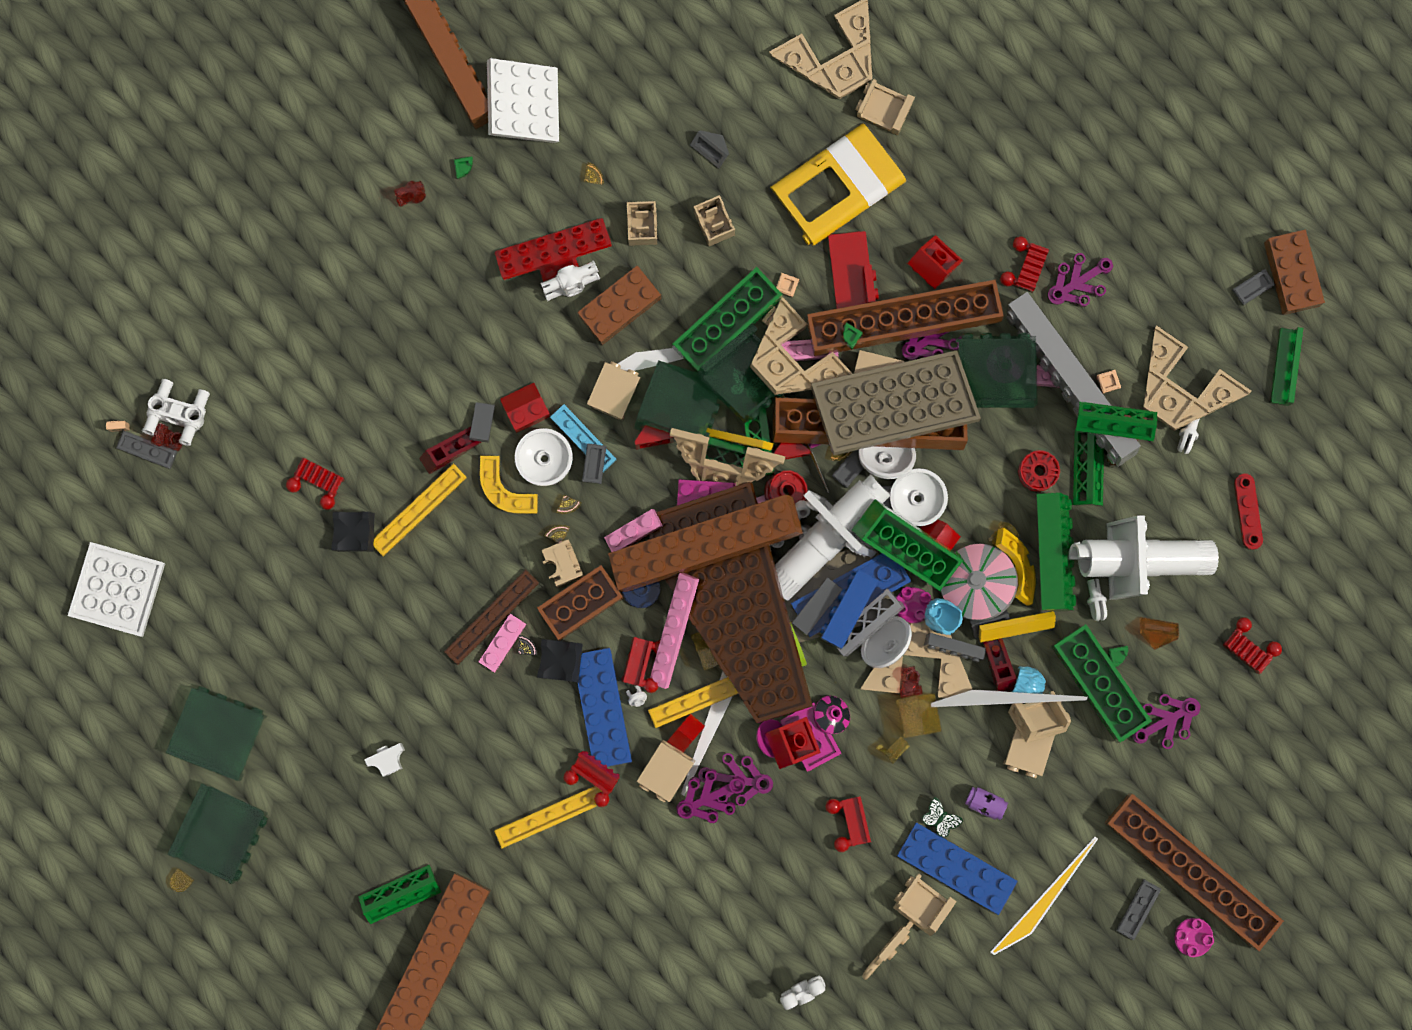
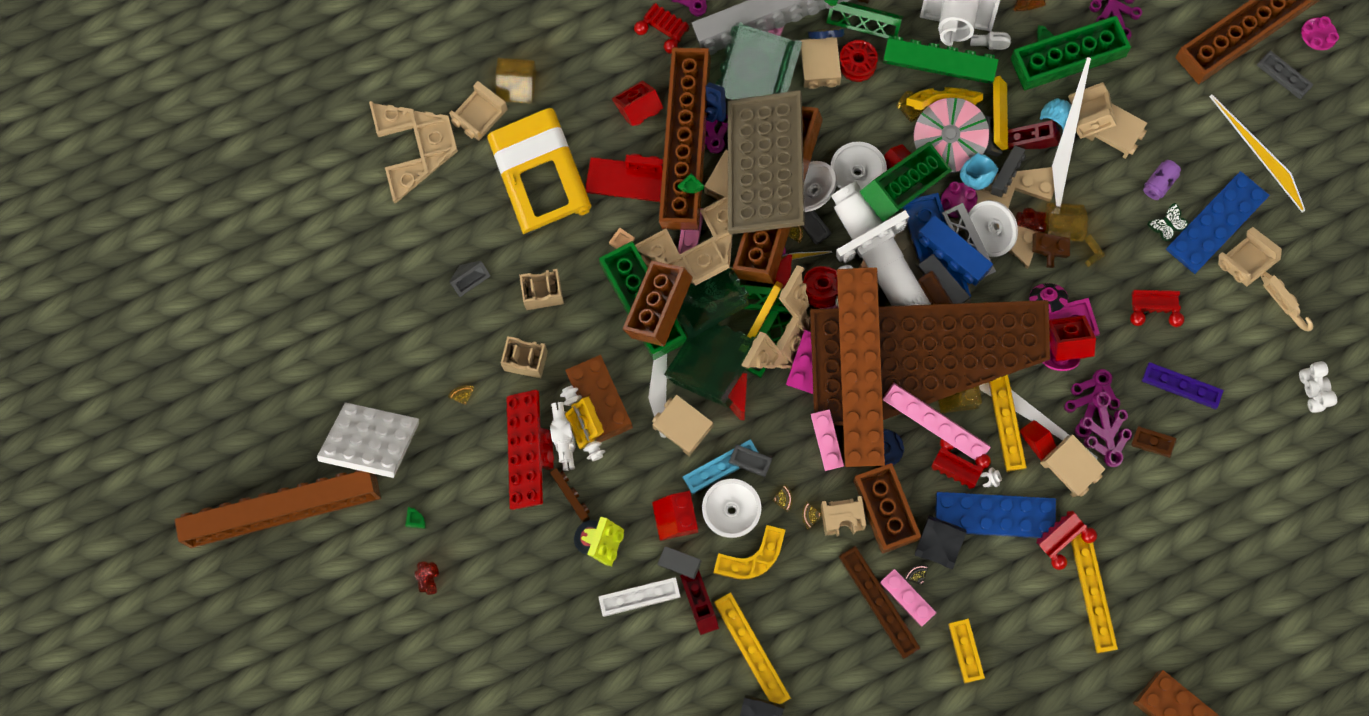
camera: 70 degrees left, 10 degrees down
(441, 393) = (639, 597): none -> white plate
(465, 707) = (966, 651): none -> yellow plate
(483, 342) = (599, 540): none -> neon yellow plate
(520, 304) = (571, 494): none -> reddish brown plate
(588, 296) = (583, 422): none -> yellow plate
(710, 844) = (1154, 442): none -> reddish brown plate
(719, 334) = (657, 303): none -> dark orange brick
(775, 862) = (1182, 385): none -> dark purple plate
(803, 599) = (933, 289): none -> reddish brown tile
(886, 706) = (1051, 246): none -> reddish brown plate
(927, 134) = (515, 80): none -> clear yellow slope
(947, 338) = (715, 102): none -> dark blue plate
(1026, 433) = (820, 62): none -> tan panel
(1059, 430) = (826, 33): none -> dark blue tile

